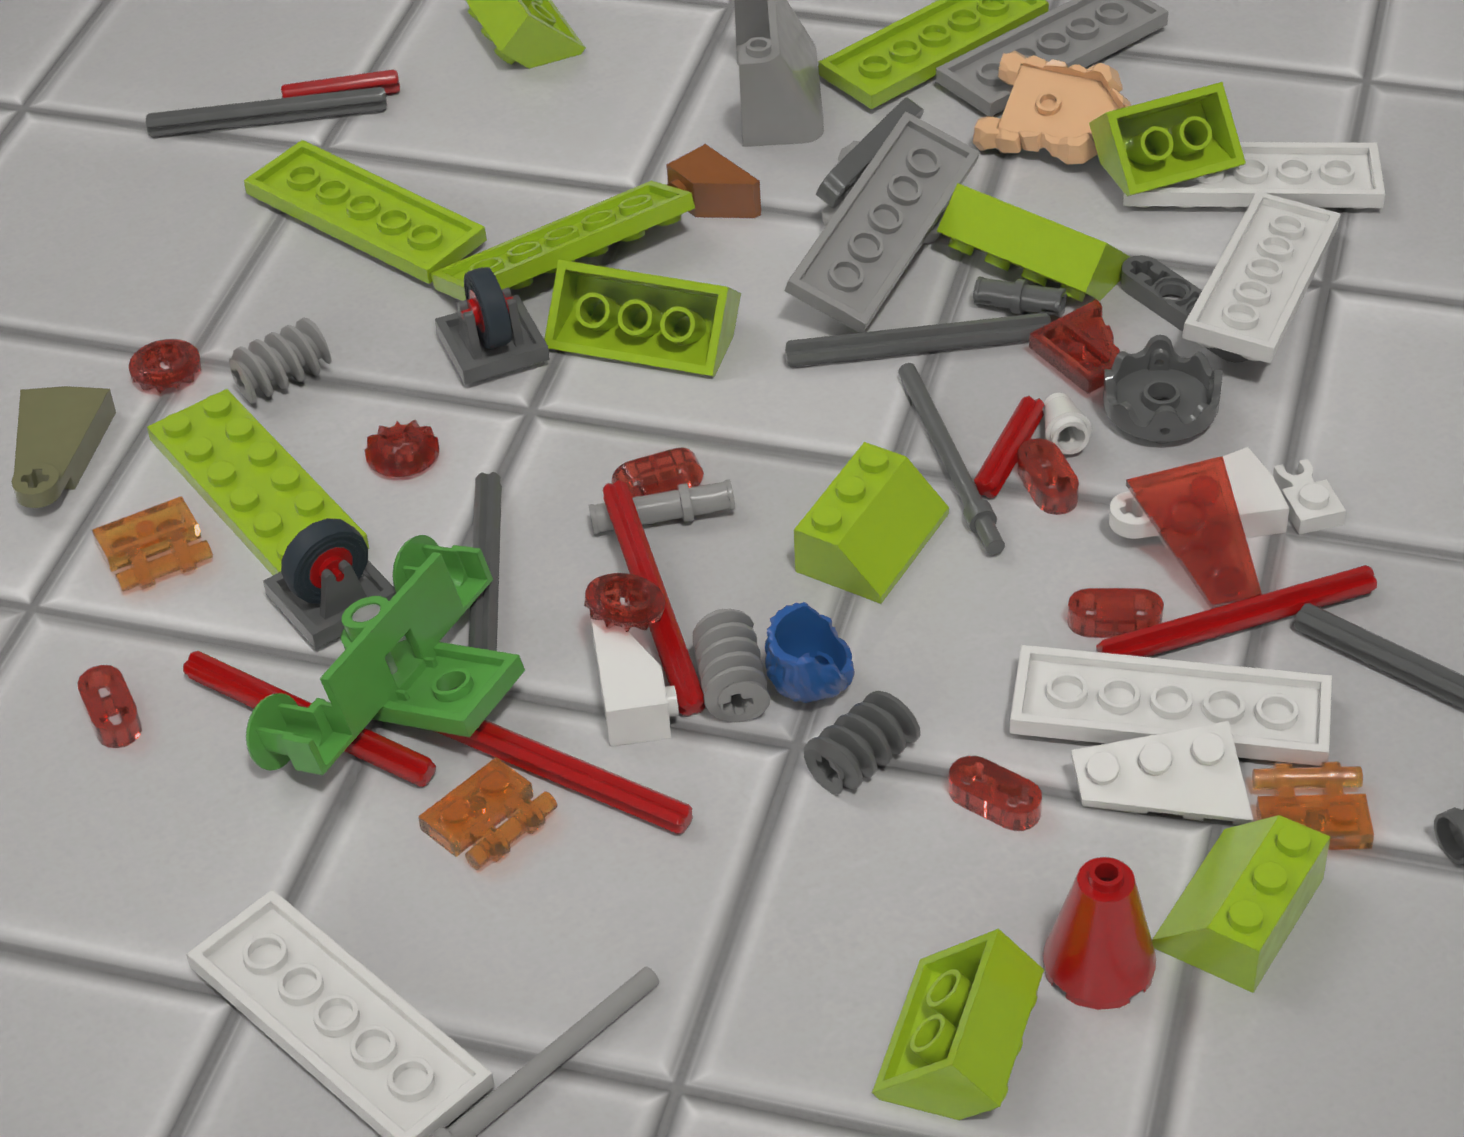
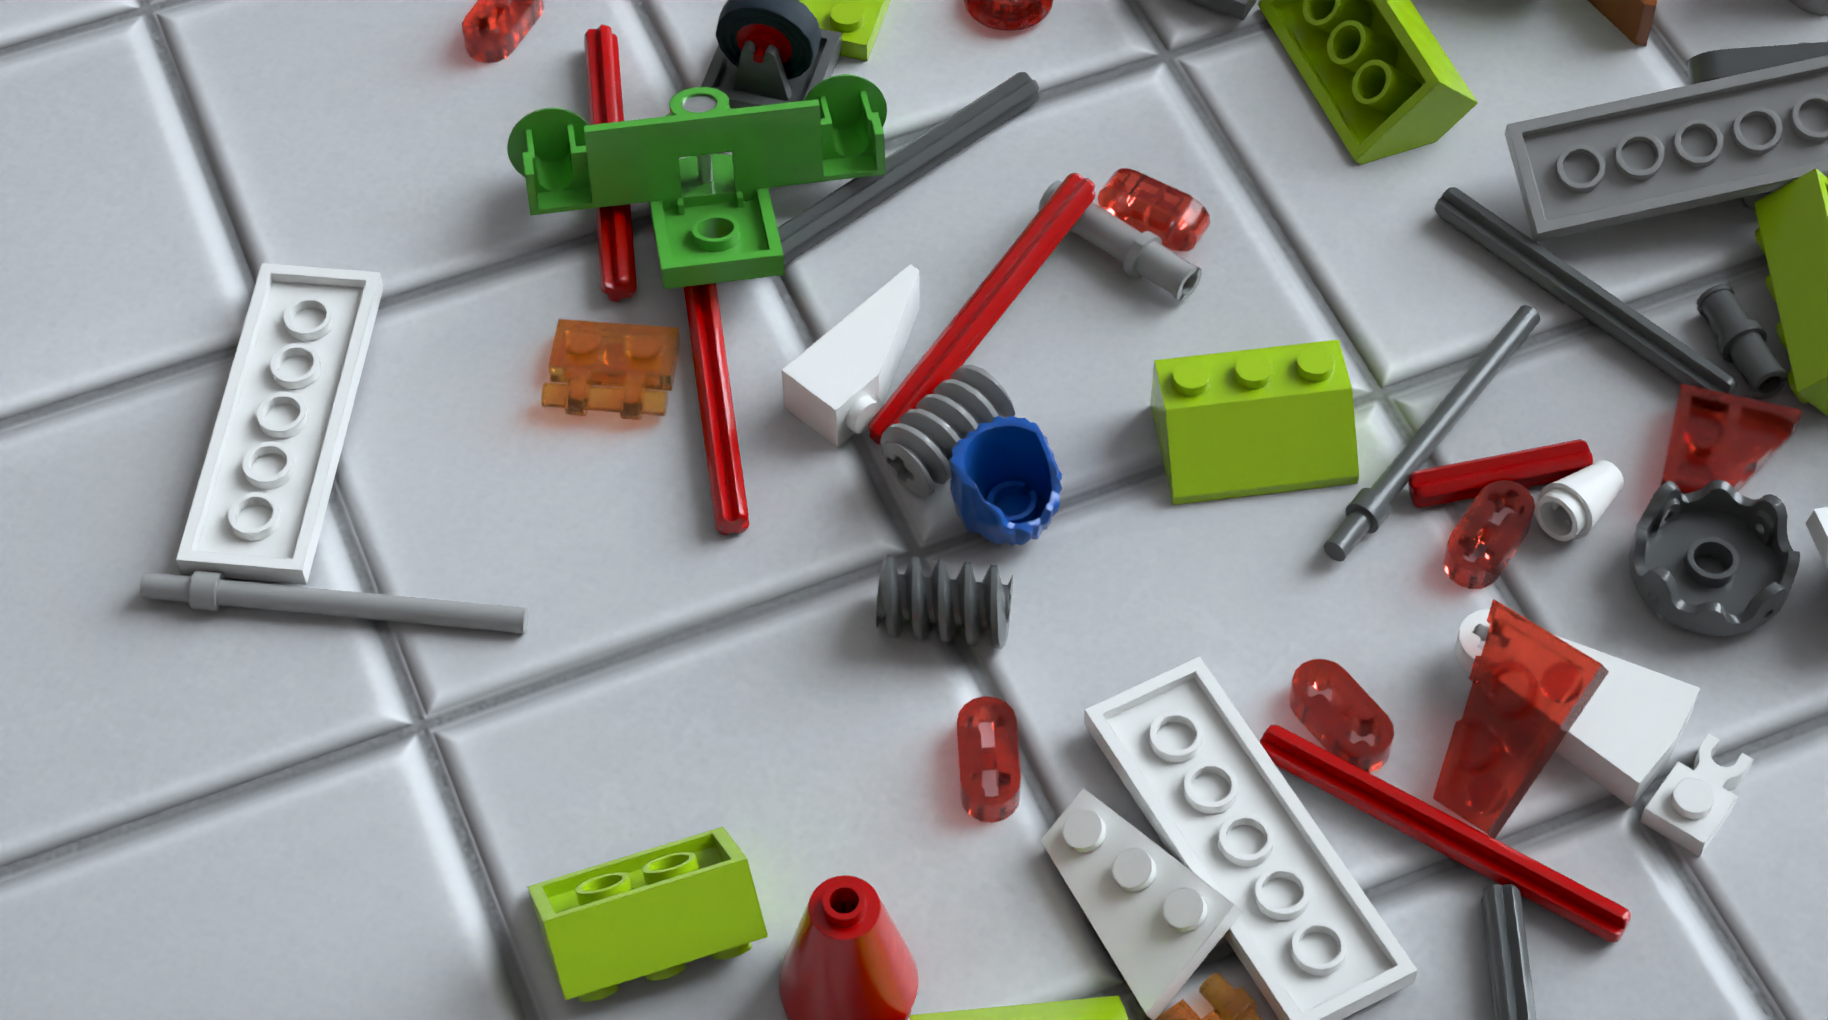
camera: 50 degrees right, 10 degrees up
(643, 601) = (927, 268): clear red gear -> none

